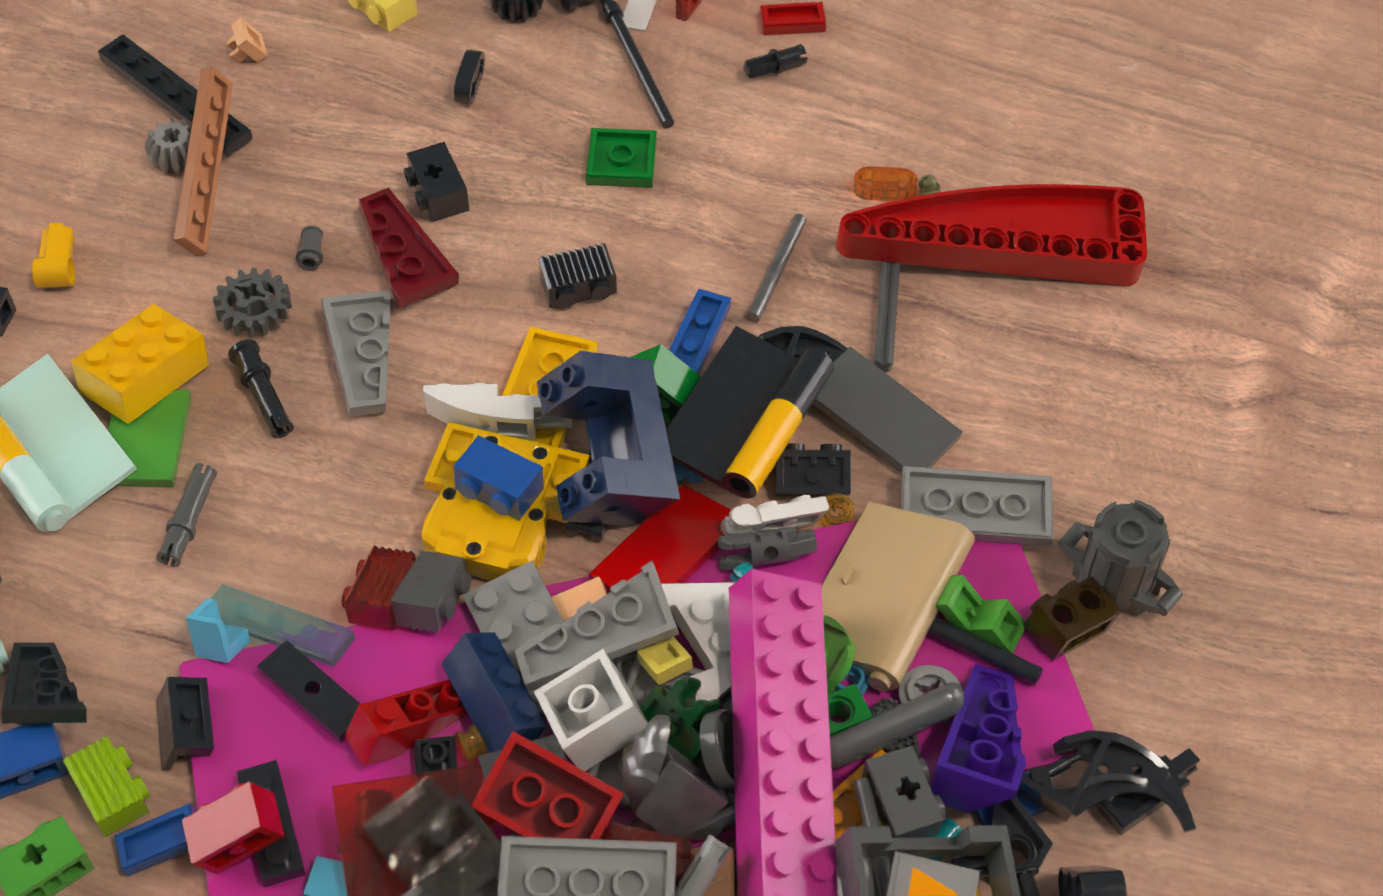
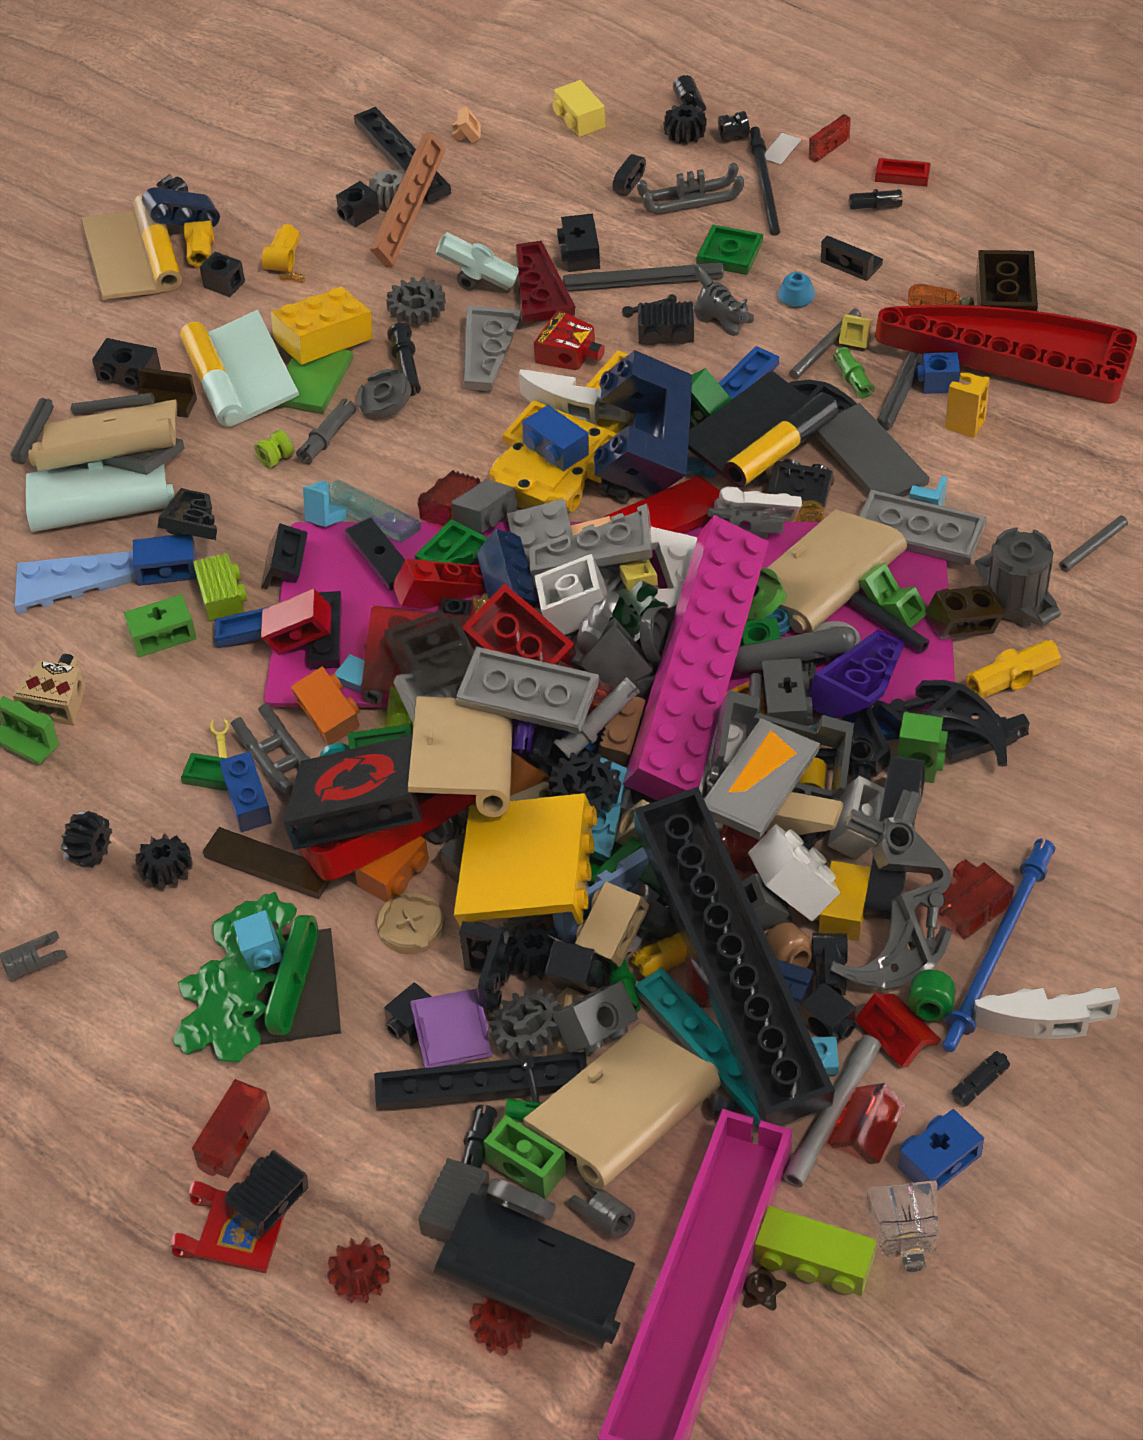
camera: 20 degrees right, 5 degrees down
(75, 292) = (289, 275): none -> clear yellow leg
(125, 556) = (274, 448): none -> lime wheel
(137, 175) = (357, 204): none -> black brick
(248, 445) = (384, 394): none -> dark grey tile
(318, 235) = (477, 261): none -> light aqua piece
(406, 661) = (452, 544): none -> green wing
(463, 326) = (566, 343): none -> red torso
(523, 265) = (628, 311): none -> black hinge
(527, 214) = (639, 276): none -> dark grey axle
(552, 88) = (691, 192): none -> dark grey piece
(632, 236) = (718, 303): none -> dark grey animal
(721, 201) = (796, 290): none -> dark azure cone
(769, 146) = (849, 258): none -> black panel
(810, 245) = (855, 331): none -> light yellow tile
(825, 302) = (853, 372): none -> bright green pin
(928, 284) = (938, 372): none -> blue brick
(968, 149) = (1006, 279): none -> dark brown brick
(971, 457) = (929, 495): none -> medium azure panel
(980, 326) = (967, 404): none -> yellow hinge
(1088, 830) = (922, 739): none -> bright green brick
(1151, 684) = (1014, 668): none -> yellow piece
(1183, 478) = (1093, 543): none -> dark grey piece

